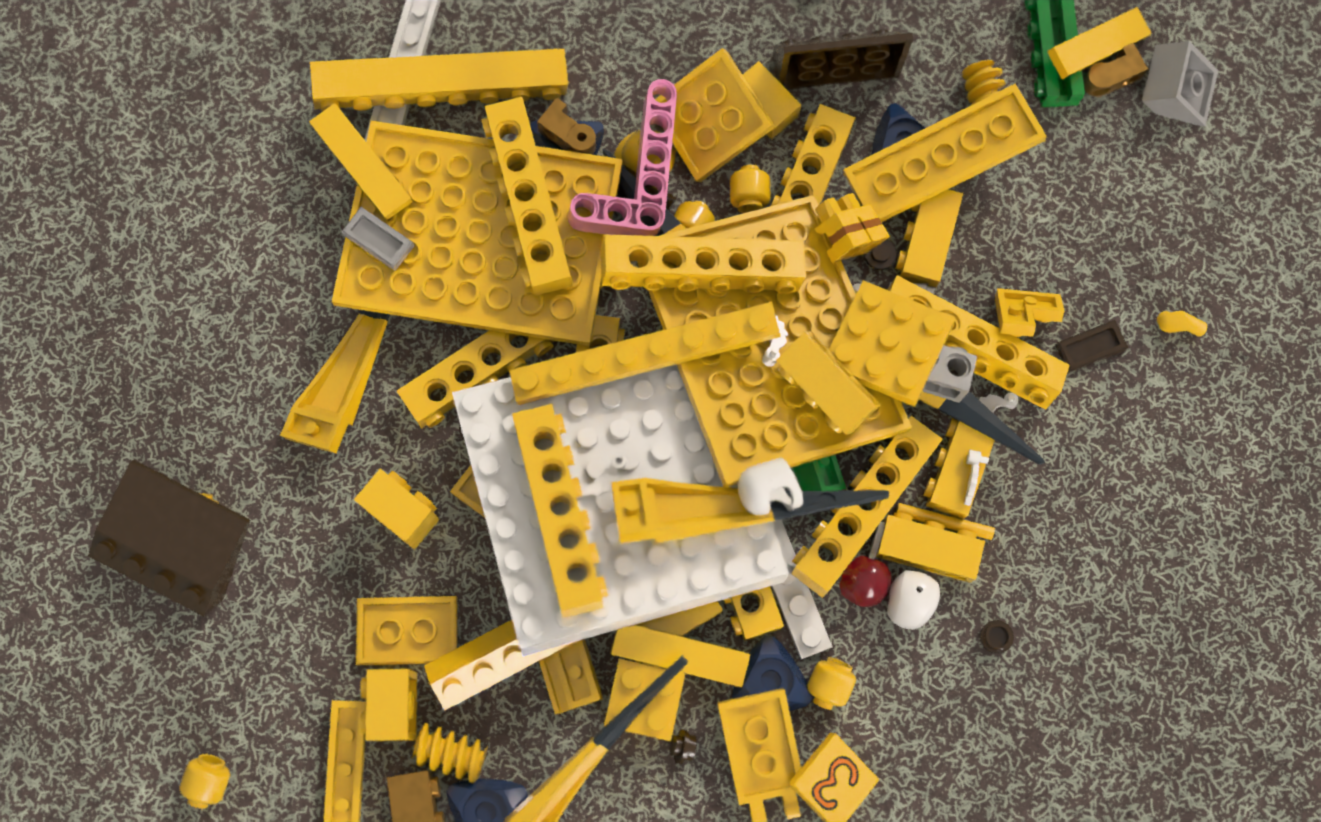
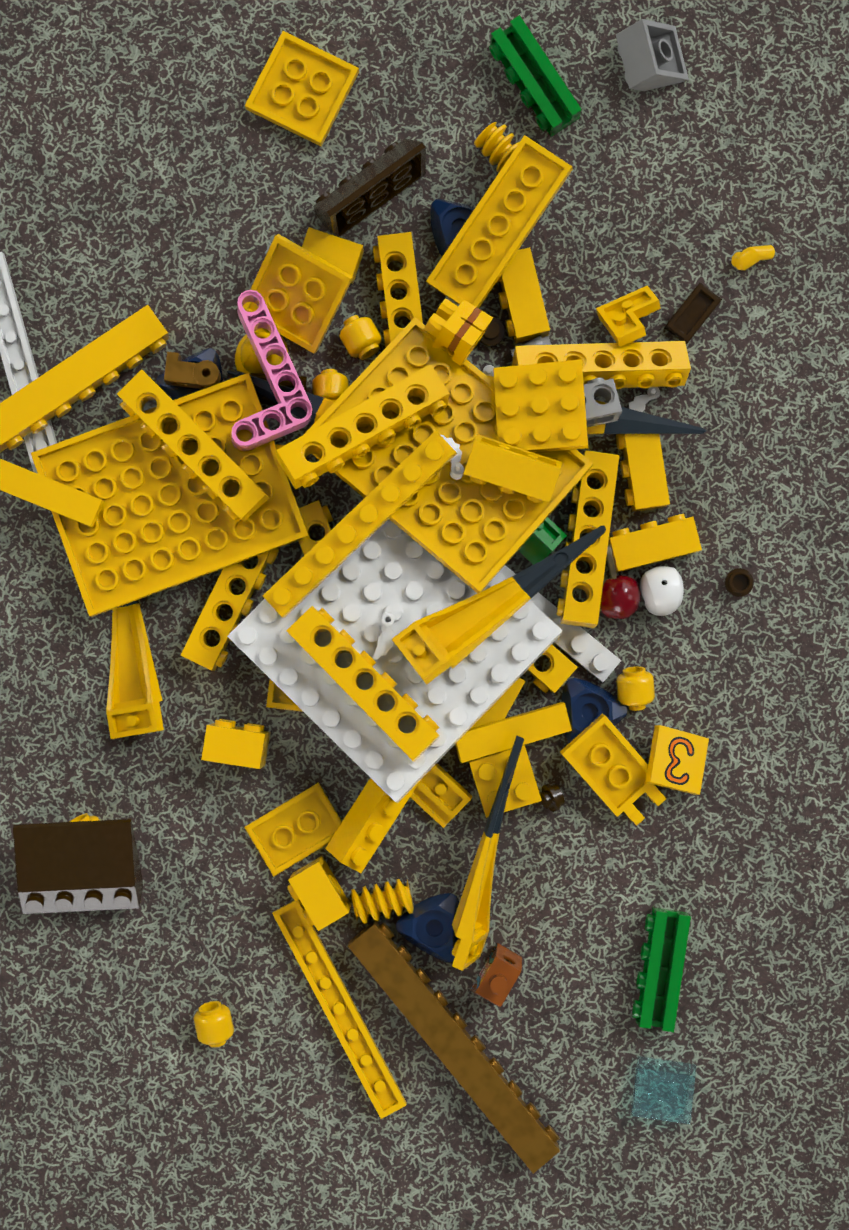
camera: 30 degrees left, 10 degrees up
(378, 238) = (95, 546): light grey tile -> none
(765, 484) = (510, 573): white helmet -> none
(950, 522) = (654, 515): yellow bar -> none
(973, 458) = (652, 458): white piece -> none
(1099, 43) = (570, 58): yellow tile -> none
(1111, 76) = (591, 82): pearl gold leg -> none

